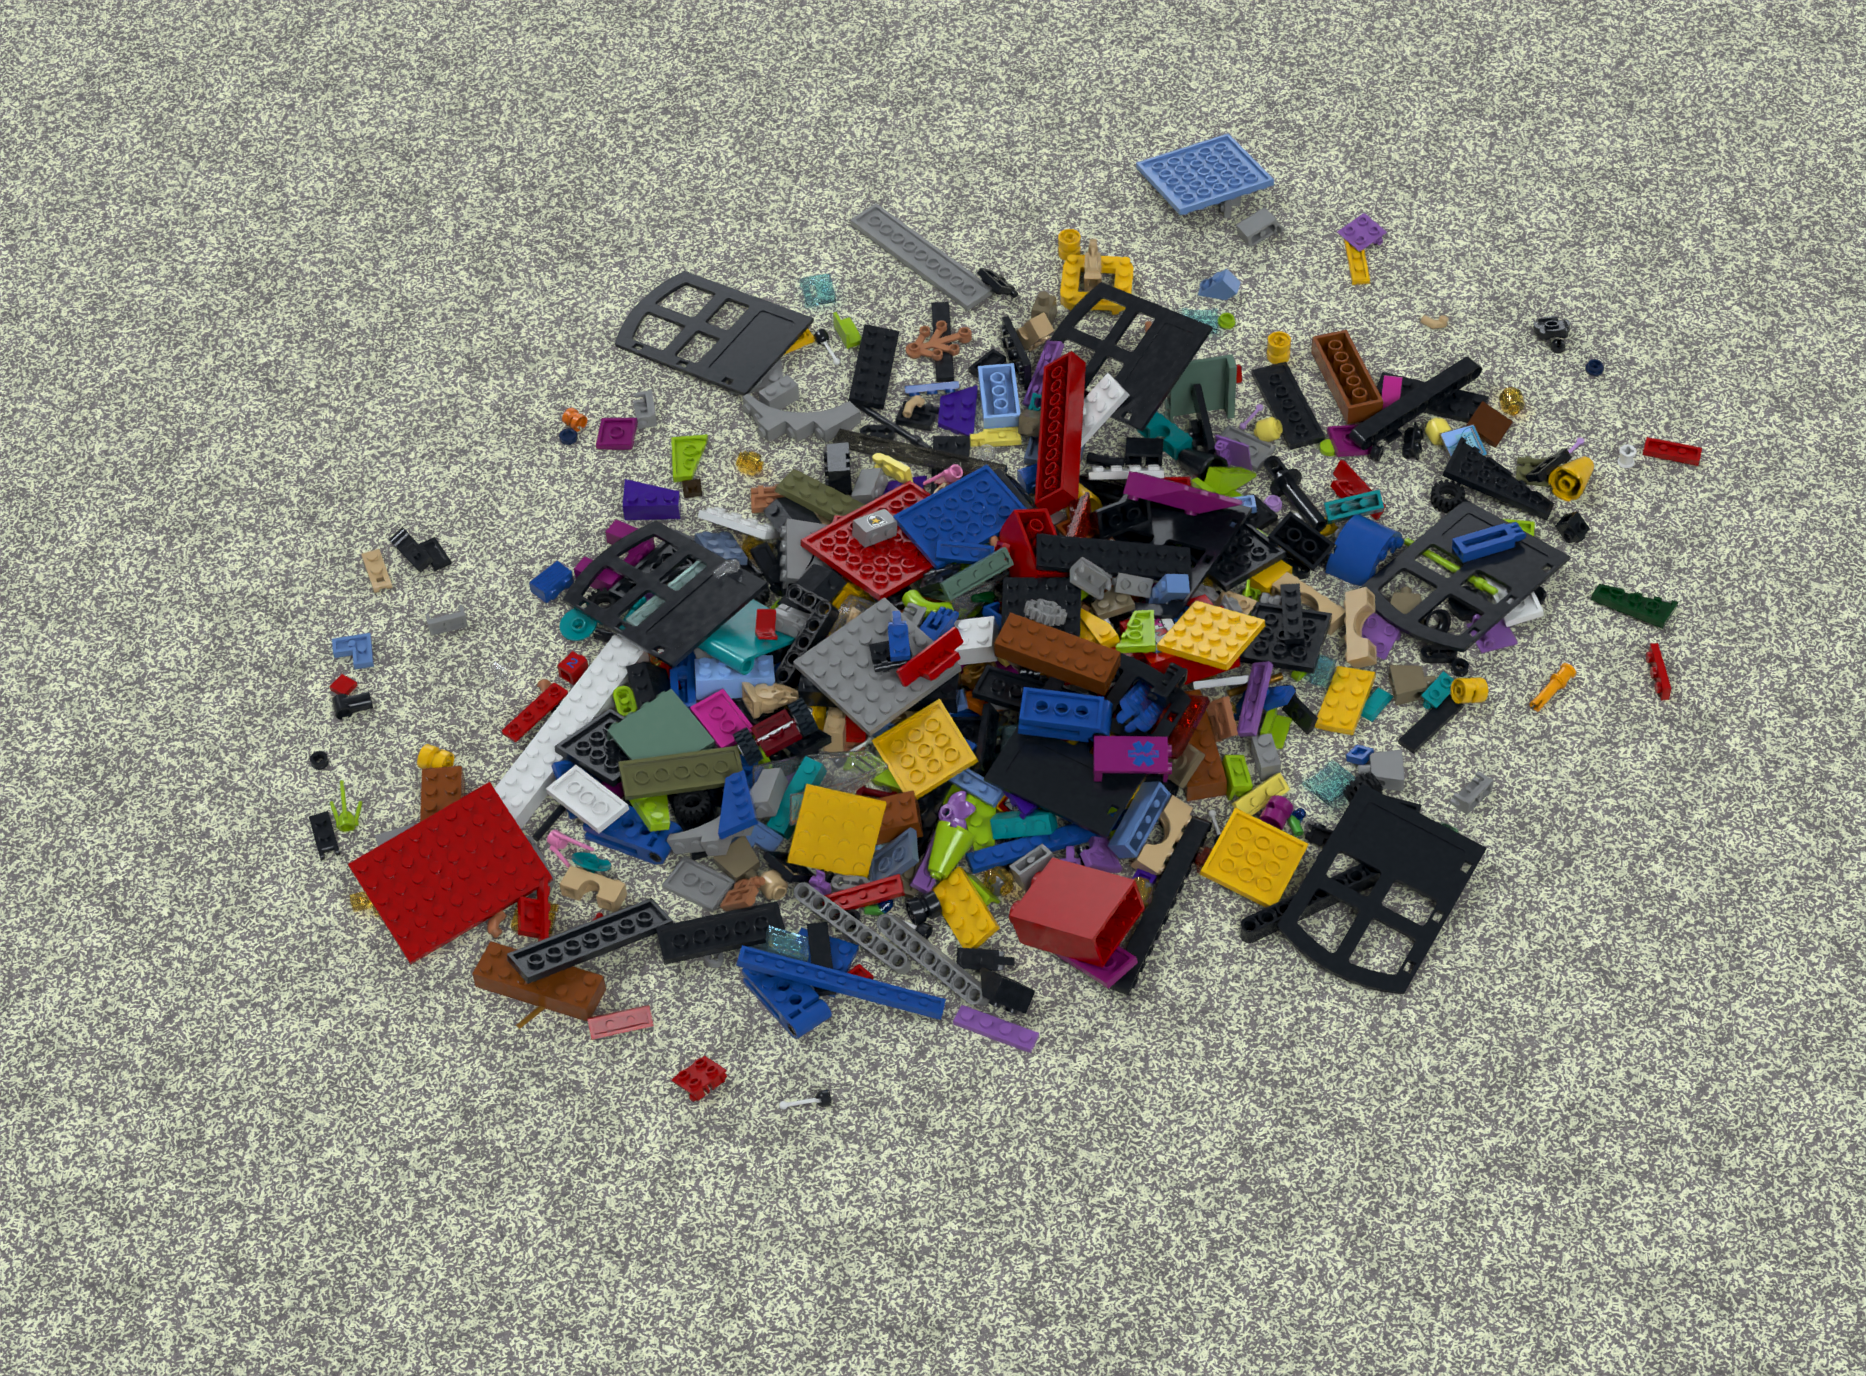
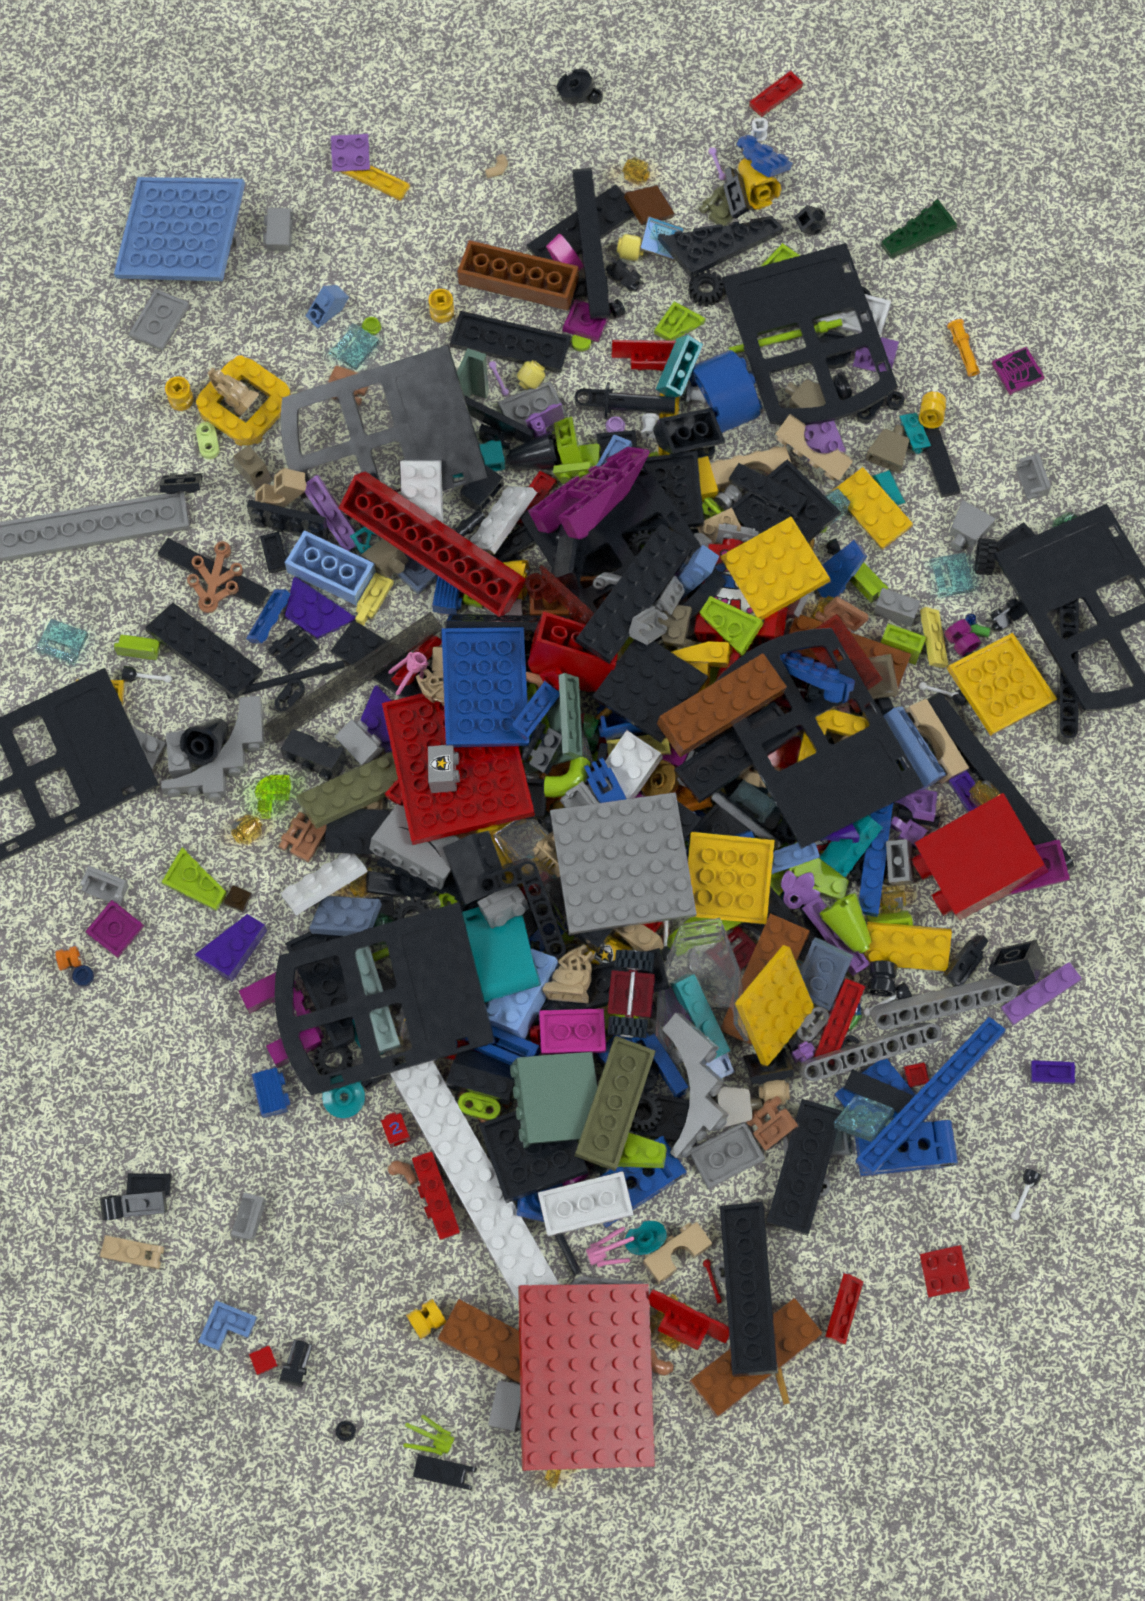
camera: 60 degrees left, 20 degrees up
(728, 566) = (410, 926): clear arm -> none
(737, 806) = (699, 1076): blue wing -> none
(766, 624) = (498, 931): red bracket -> none
(790, 459) = (269, 789): none -> clear neon green brick
(798, 396) = (204, 741): none -> black cone
(881, 654) = (623, 841): black plate -> none
(893, 468) = (350, 709): light yellow hinge -> none
(898, 638) = (623, 827): blue hinge -> none
(909, 406) = (283, 646): tan arm -> none
(929, 1069) = (1052, 1072): none -> dark purple plate
(933, 659) = (666, 811): red bracket -> none
(1045, 612) = (674, 686): light grey gear -> none
(1047, 282) = (207, 439): none -> yellowish green plate
(1064, 715) = (804, 715): blue hinge -> none
(1123, 207) = (159, 319): none -> light grey tile
(1131, 755) = (867, 716): magenta panel -> none
(1168, 685) = (811, 637): black hinge -> none
(1201, 858) = (974, 722): clear red plate -> none
(1254, 699) = (844, 578): medium lavender plate -> none
(1300, 714) = (874, 550): black plate -> none
(1359, 754) = (939, 534): blue plate -> none
(1400, 495) = (678, 322): none -> lime wing
(1487, 541) = (788, 301): blue hinge -> none
(1566, 736) = (1018, 370): none -> tile
(1594, 367) = (641, 81): dark blue plate -> none
(1599, 468) = (762, 157): none -> blue plate
(1658, 671) = (1001, 261): red plate -> none

